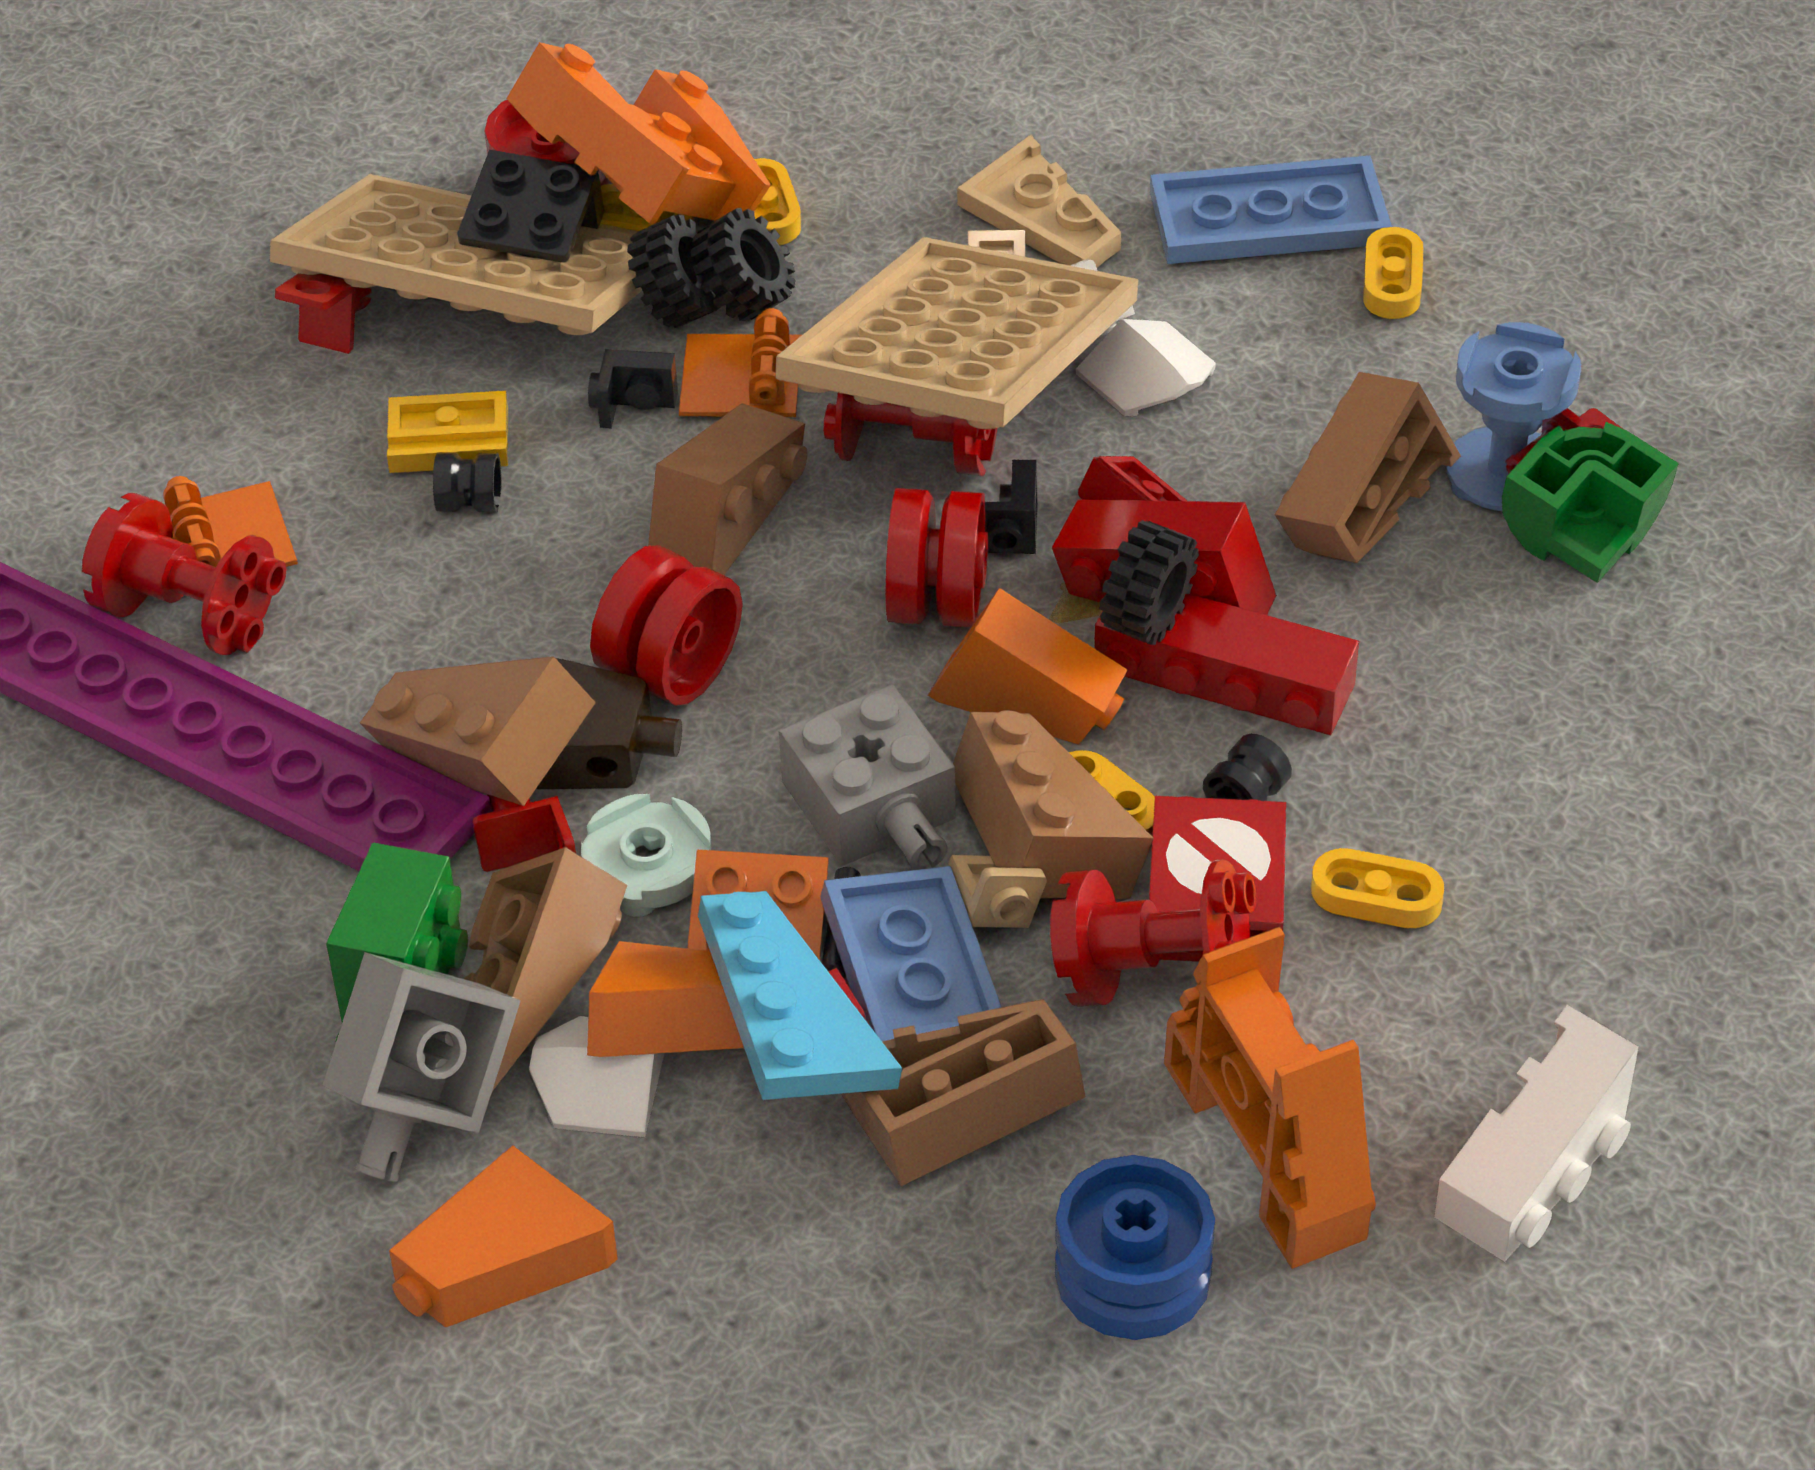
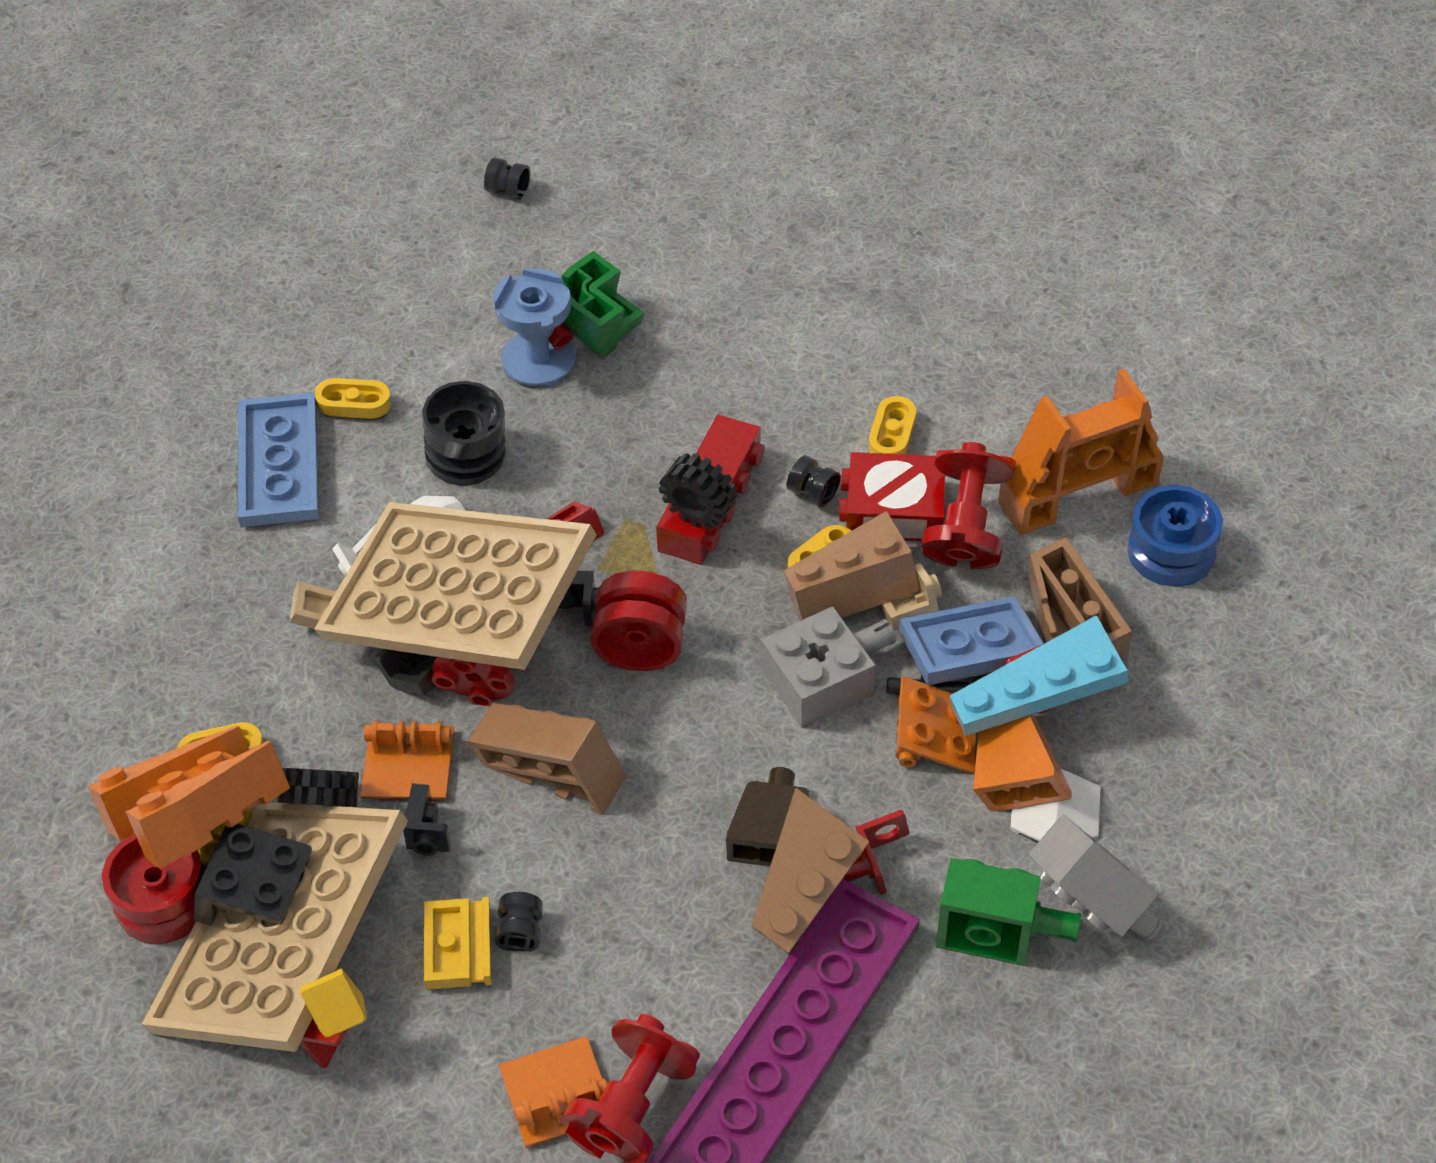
camera: 90 degrees left, 5 degrees up
(316, 274) = (334, 1003): none -> yellow slope
(500, 1243) = (1206, 849): orange slope -> none
(541, 934) = (961, 830): medium nougat wedge -> none
(637, 822) = (871, 768): light aqua plate -> none
(666, 624) = (699, 769): red wheel -> none
(743, 264) = (315, 746): black tyre -> none
(1033, 667) = (730, 585): orange slope -> none
(1034, 196) = (248, 591): tan wing -> none
(1229, 557) = (630, 511): red wedge -> none
(1300, 363) = (464, 432): none -> black wheel
(1365, 467) = (561, 409): medium nougat wedge -> none
(1544, 1141) = (1074, 355): white wedge -> none

